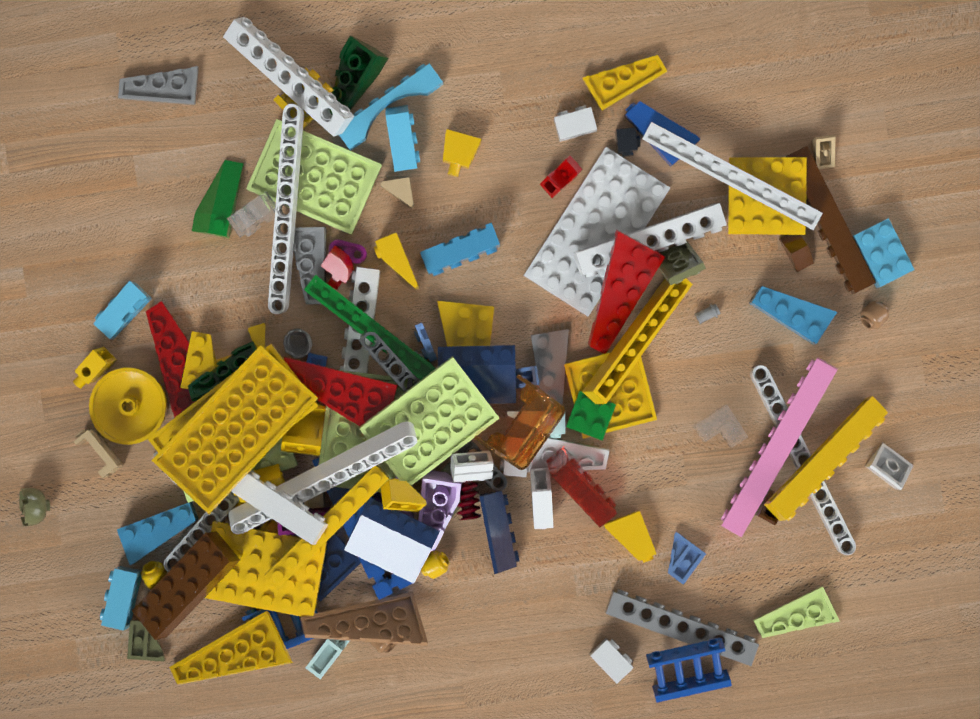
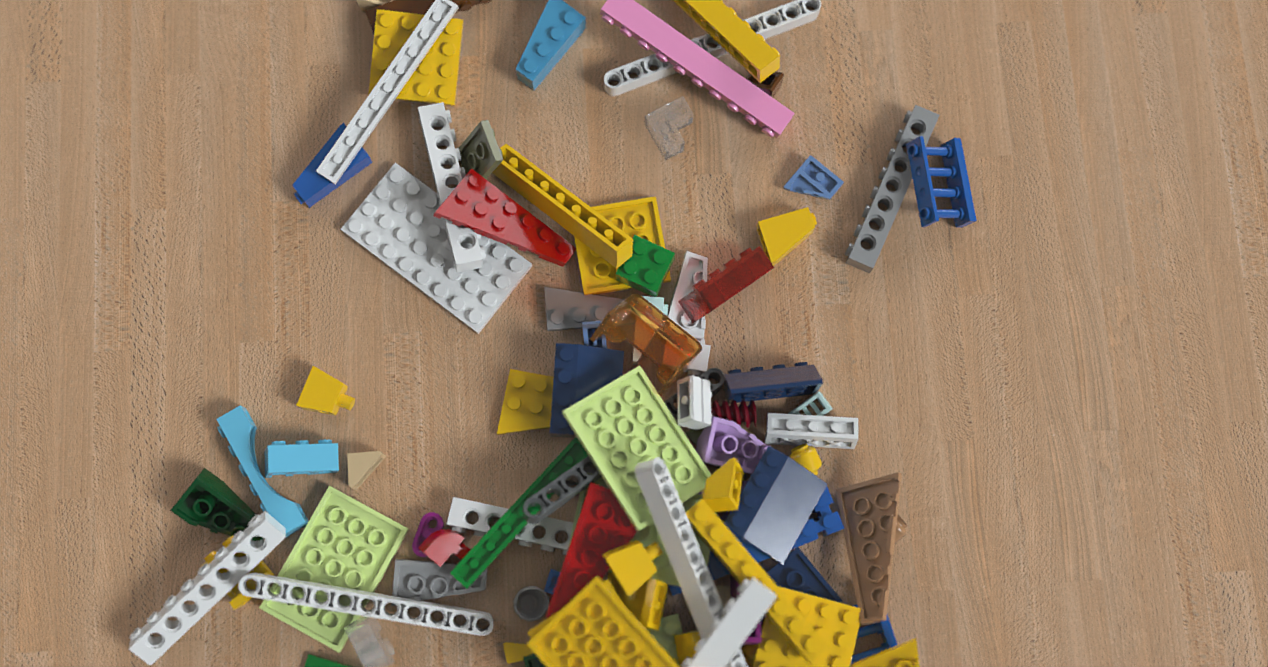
camera: 85 degrees left, 10 degrees down
(326, 656) = (908, 599): light aqua slope -> none
(332, 425) = (632, 564): none -> yellow torso
(394, 256) = (439, 477): yellow slope -> none
(421, 335) = (536, 453): medium blue wing -> none
(460, 249) = (439, 400): dark azure wedge -> none
(460, 568) = (811, 429): none -> white fence
(482, 581) = (827, 407): none -> light aqua slope
(541, 498) = (736, 330): white slope -> none
(561, 177) = (367, 279): red brick -> none
(575, 123) = (309, 260): white brick -> none
(611, 660) = (925, 268): white brick -> none
(615, 84) = (270, 210): yellow wing -> none
(627, 141) = (337, 205): black brick -> none
(707, 313) = (541, 133): light grey pin -> none
(797, 251) = (481, 33): reddish brown slope -> none
(804, 612) = (882, 62): yellowish green wing -> none

